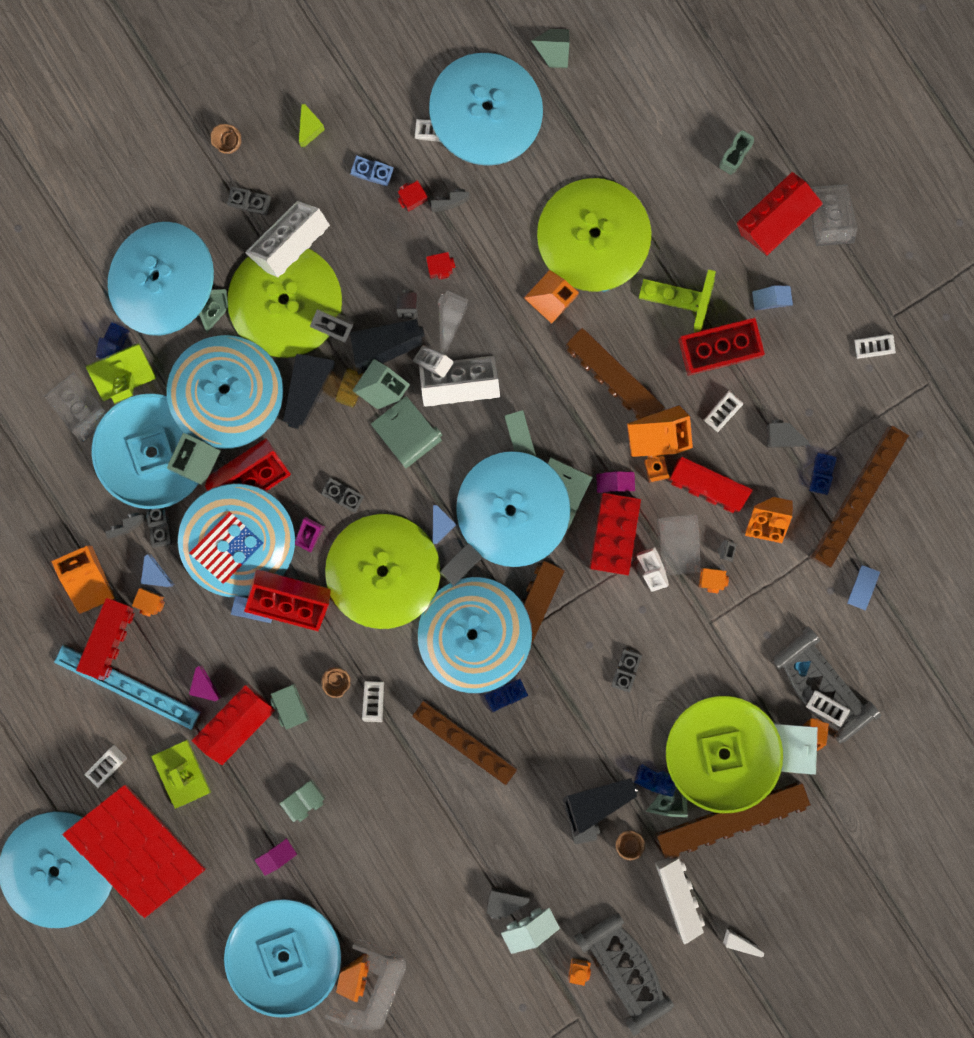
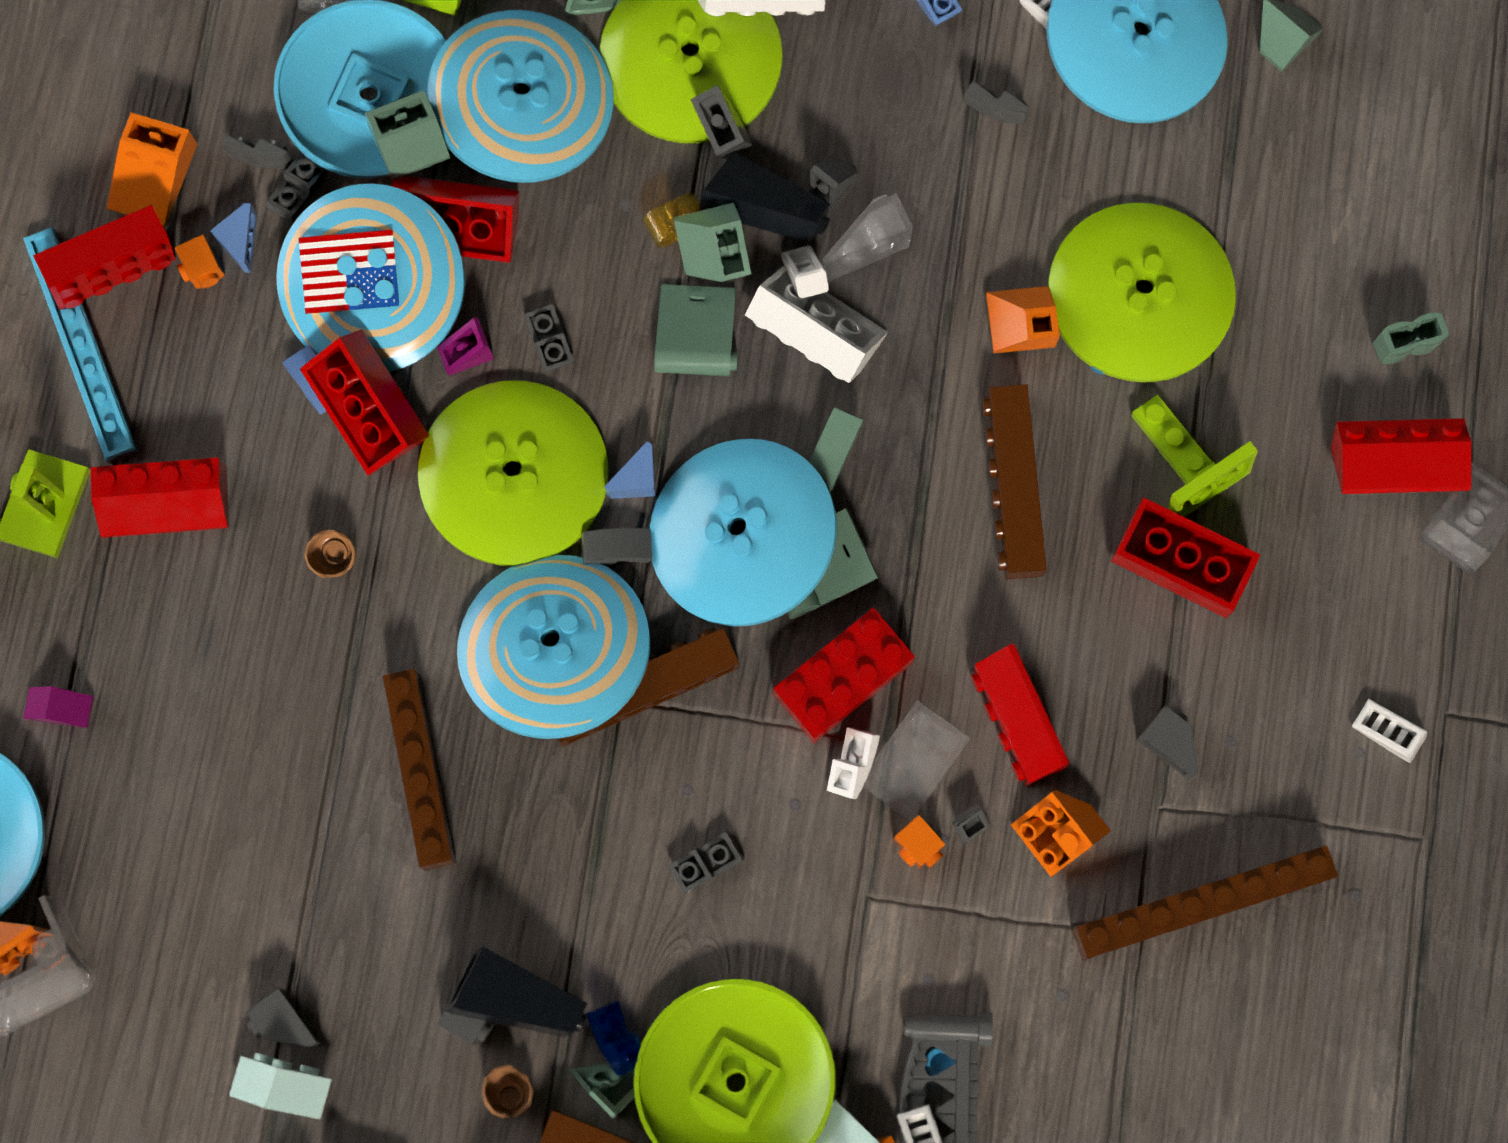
camera: 50 degrees right, 10 degrees down
(203, 686) = (169, 418): magenta slope -> none
(289, 707) = (247, 535): sand green brick -> none
(302, 801) = (154, 665): sand green brick -> none
(306, 386) = (621, 174): black slope -> none
(373, 718) = (351, 638): white slope -> none
(411, 196) = (954, 60): red brick -> none
(440, 265) = (916, 168): red brick -> none
(505, 695) = (525, 758): clear blue slope -> none
(615, 482) = (904, 613): magenta slope -> none
(652, 474) = (966, 650): orange brick -> none
(661, 433) = (1011, 596): orange slope -> none
(735, 399) = (1146, 637): white slope -> none
(772, 297) = (1306, 556): medium blue slope -> none
(822, 473) = (1181, 832): clear blue slope -> none
(863, 587) = (1109, 1027): medium blue slope -> none

